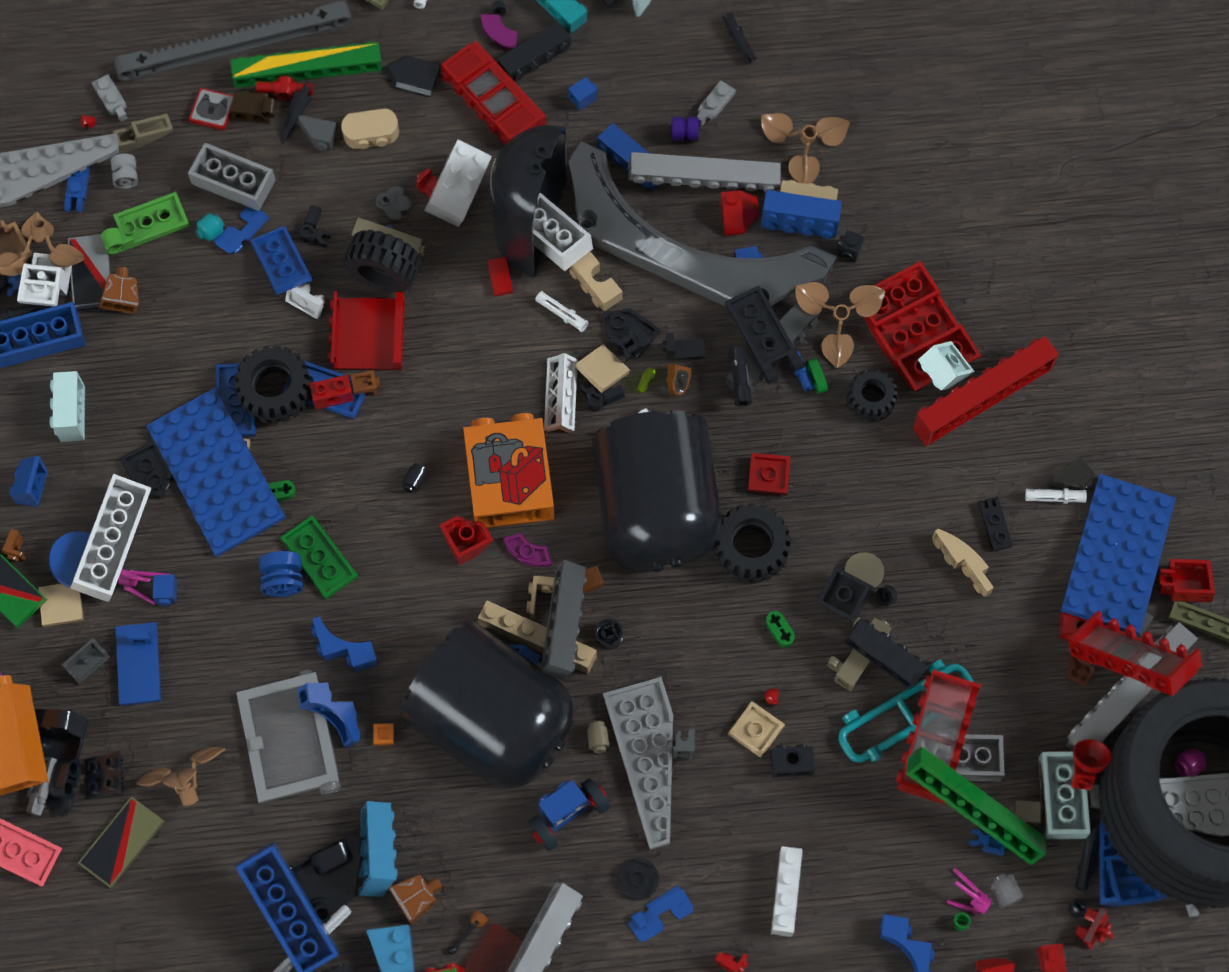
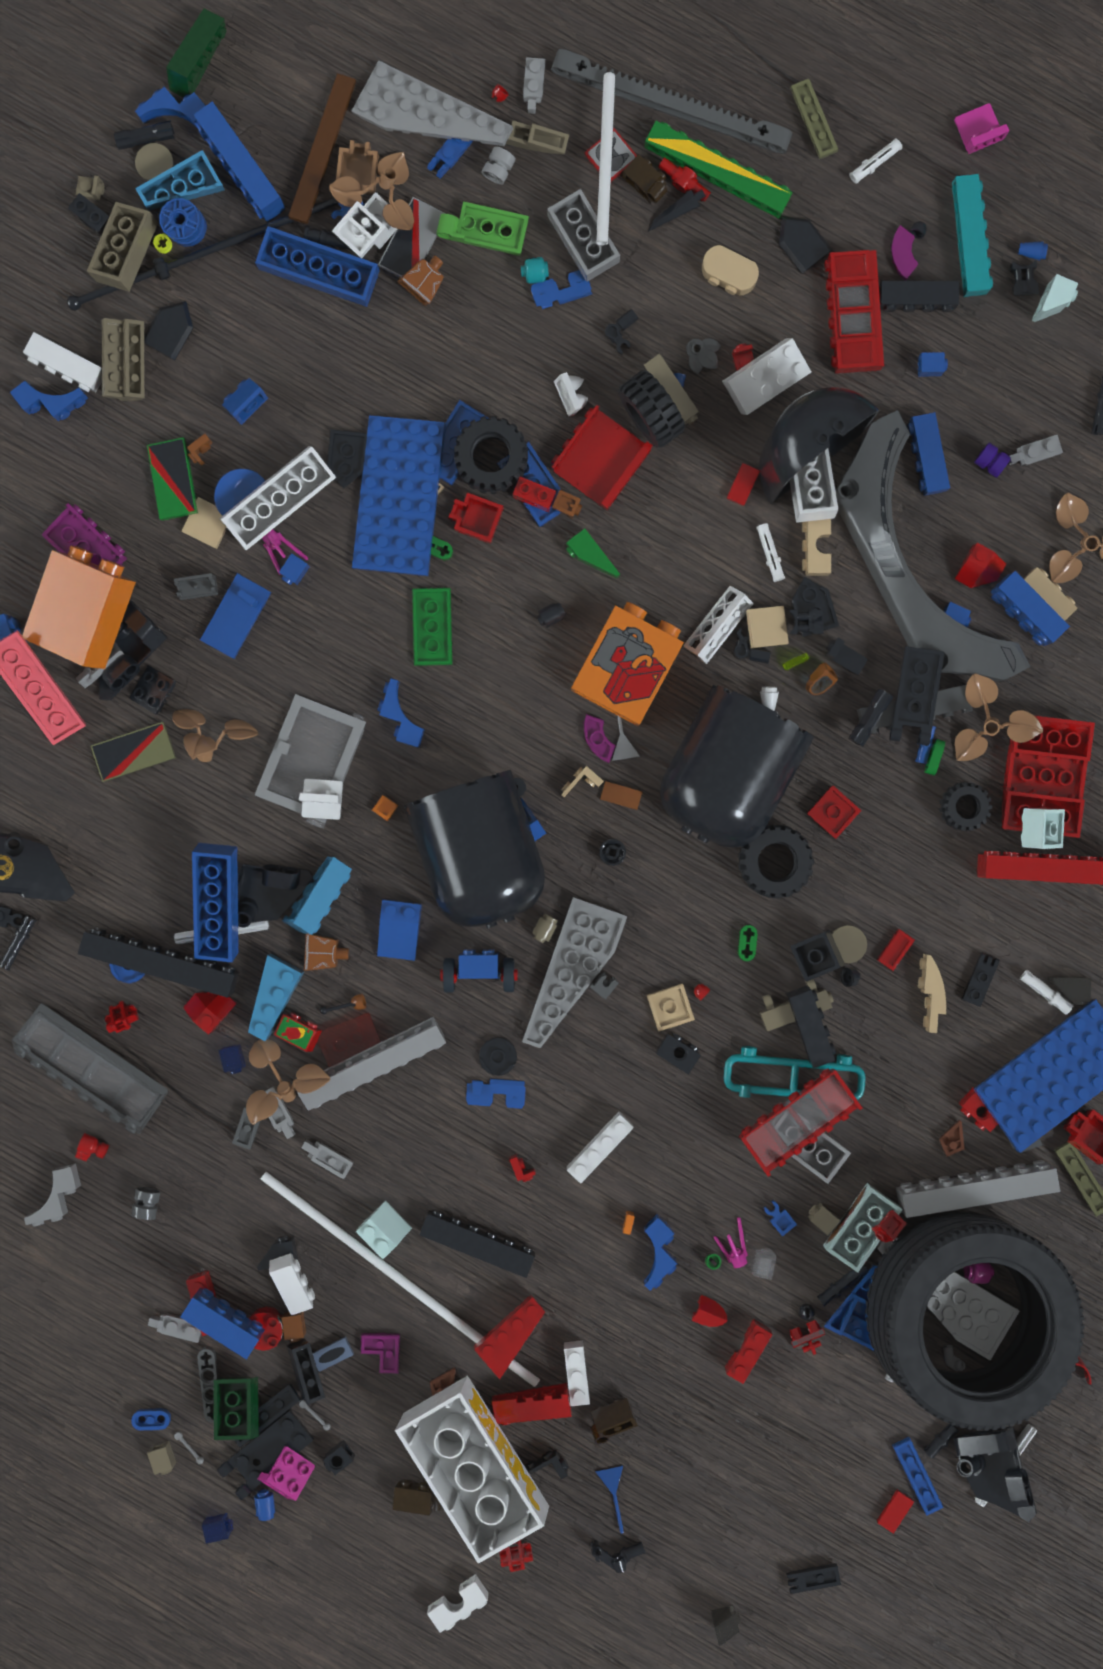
camera: 35 degrees right, 20 degrees up
(68, 406) = (315, 356): light aqua brick -> none
(210, 109) = (605, 158): none -> white piece
(280, 574) = (391, 621): blue wheel -> none
(281, 260) = (573, 343): blue tile -> none
(294, 444) = (476, 517): none -> red piece
(319, 132) = (685, 244): dark grey slope -> none
(322, 761) = (321, 799): none -> white bracket
(341, 715) = (361, 772): blue arch -> none
(412, 409) = (587, 551): none -> green slope
(465, 538) = (555, 696): red slope -> none
(470, 828) = (399, 929): none -> blue slope
(529, 633) = (554, 816): tan brick -> none
(555, 544) = (624, 748): none -> light grey piece
(563, 620) = (581, 823): dark grey brick -> none
(704, 172) = (977, 513): light grey brick -> none
(850, 245) = (1048, 664): black brick -> none
(862, 941) = (628, 1222): none -> orange tile
(907, 548) = (895, 949): none -> red tile
(976, 805) = (785, 1195): green brick -> none
(1094, 751) = (909, 1220): red piece -> none
(1134, 656) = (997, 1176): red window -> none

